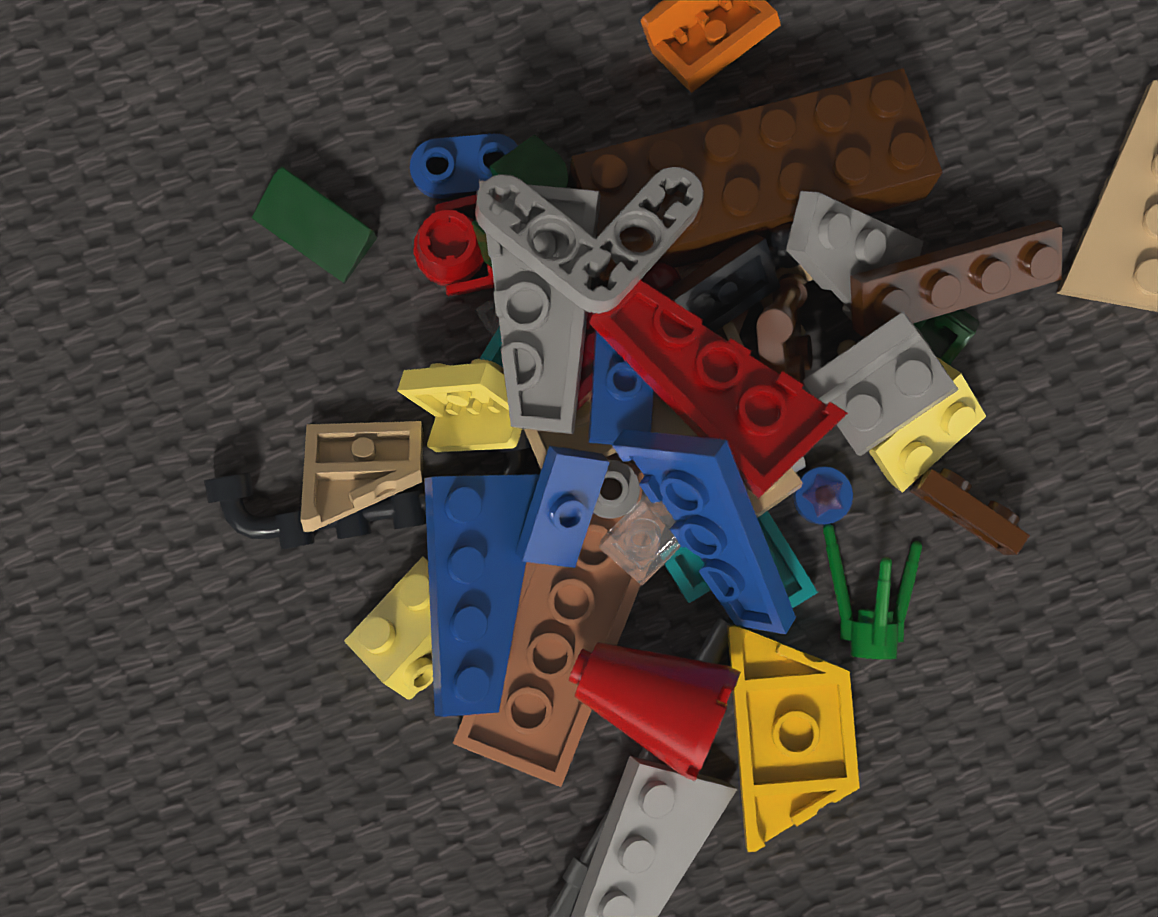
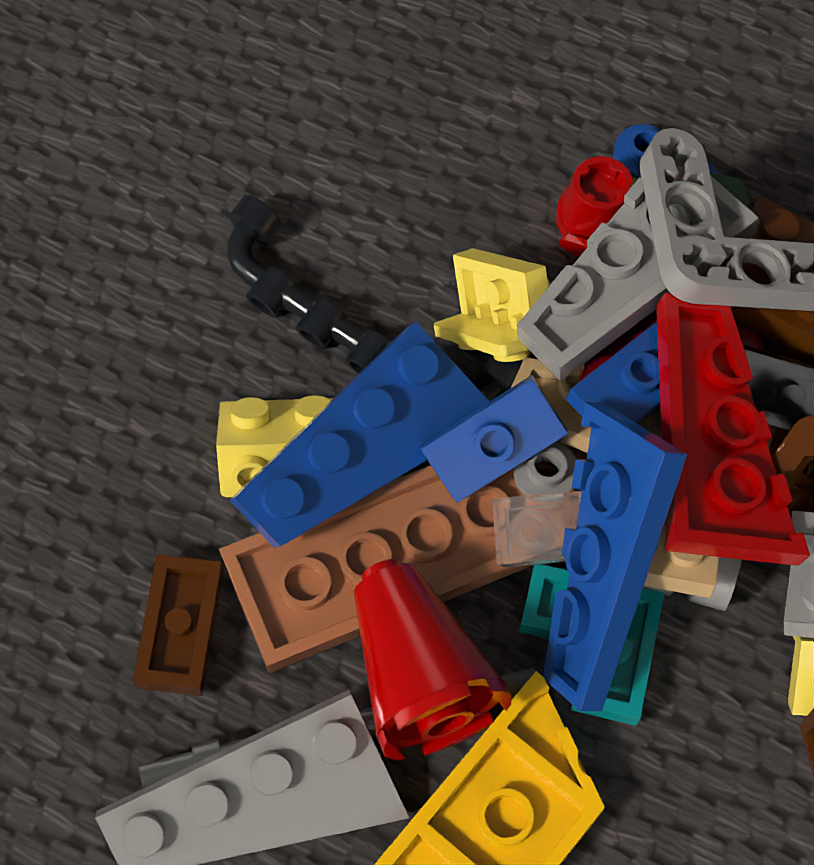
camera: 45 degrees right, 20 degrees down
(313, 225) = (510, 111): dark green slope -> none
(356, 467) = (363, 285): tan wing -> none
(476, 813) = (178, 625): none -> reddish brown plate
(823, 496) = (719, 655): blue tile -> none
(878, 629) = (658, 801): green plant -> none

